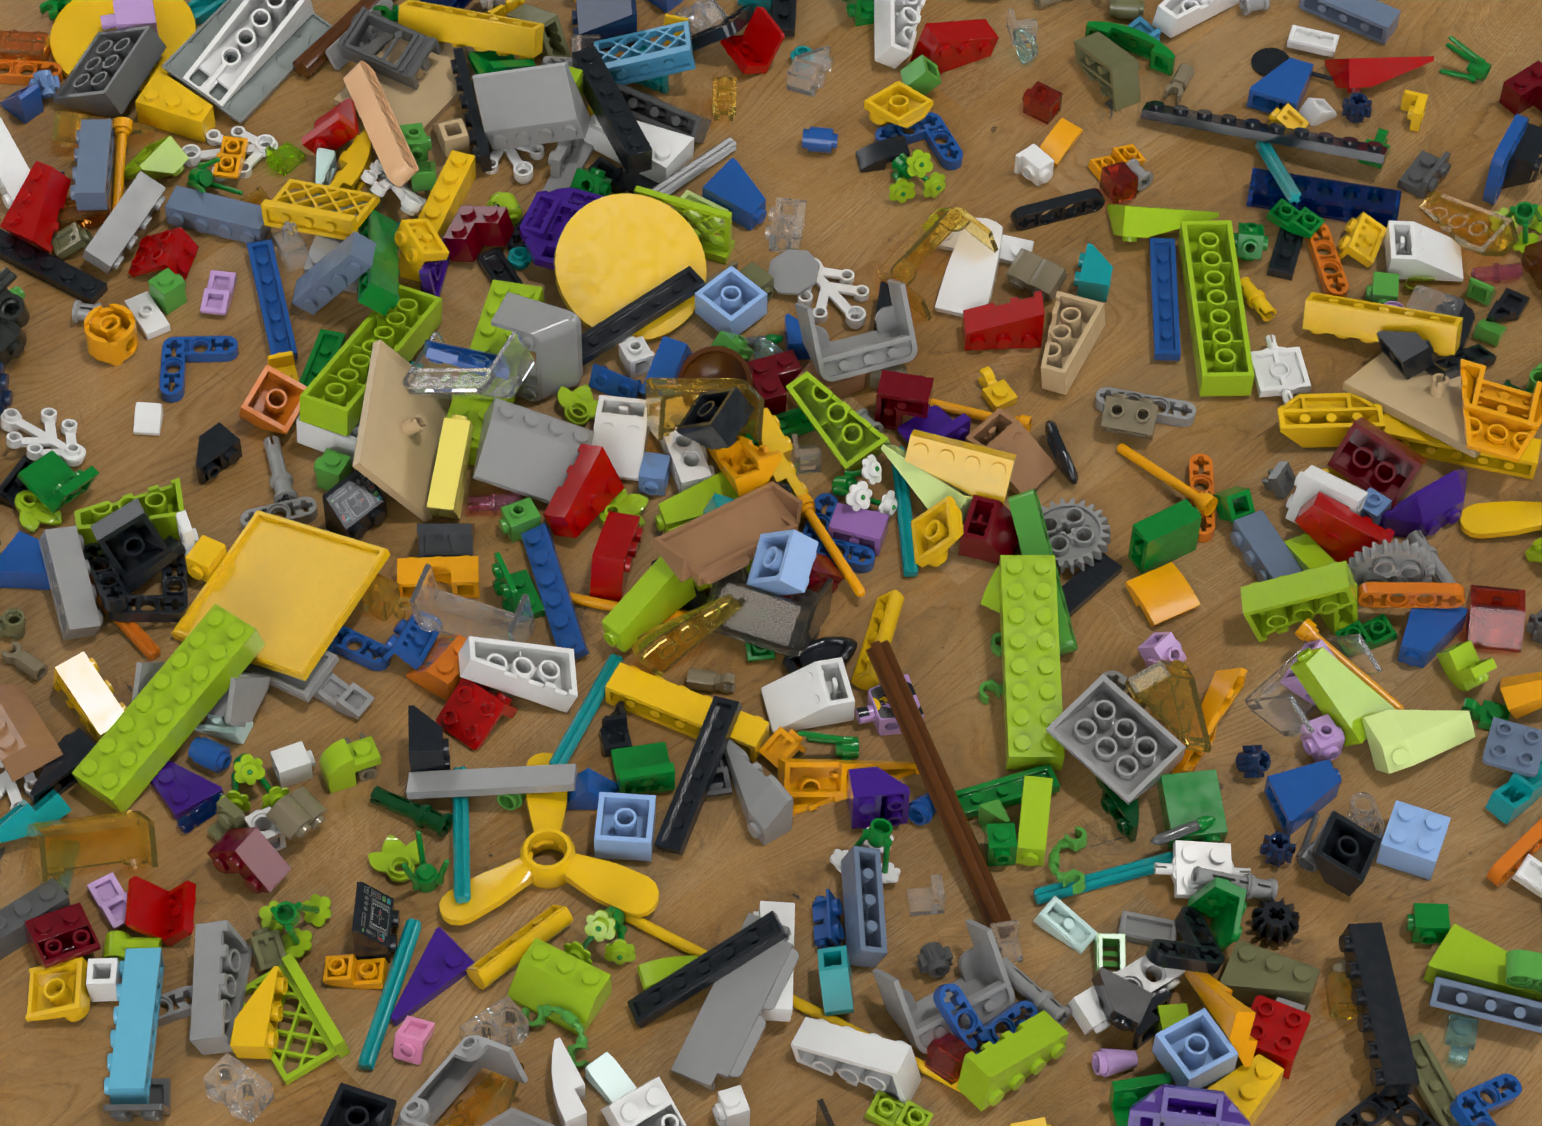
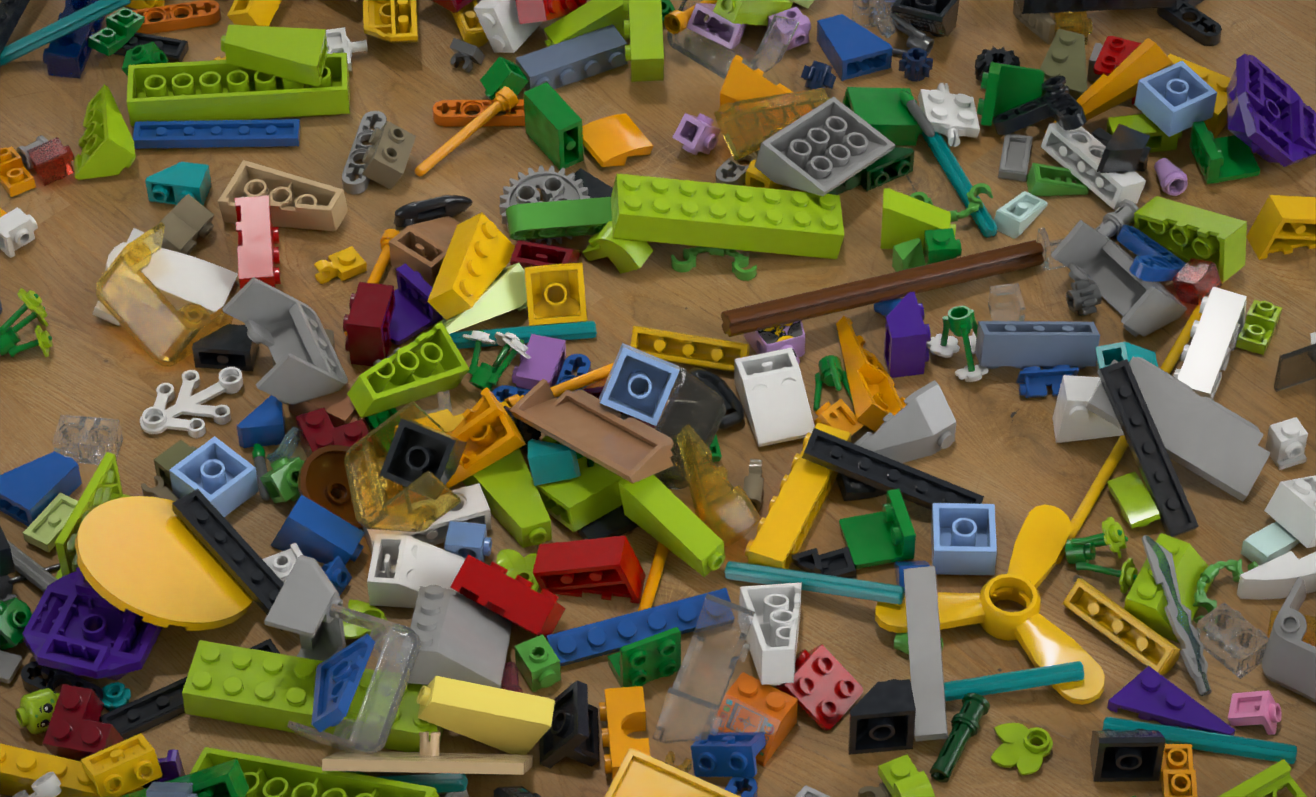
camera: 90 degrees left, 5 degrees down
(426, 876) = (1045, 713): green plant -> none
(515, 981) = (1179, 615): none -> light grey sword
(794, 272) = (161, 428): light grey piece -> none
(1006, 789) = (868, 245): green plate -> none
(1083, 203) = (81, 214): black beam -> none
(1218, 951) = (1055, 87): none -> black bush
(1240, 321) = (278, 51): none -> lime slope
(1255, 886) = (965, 82): light grey pin -> none

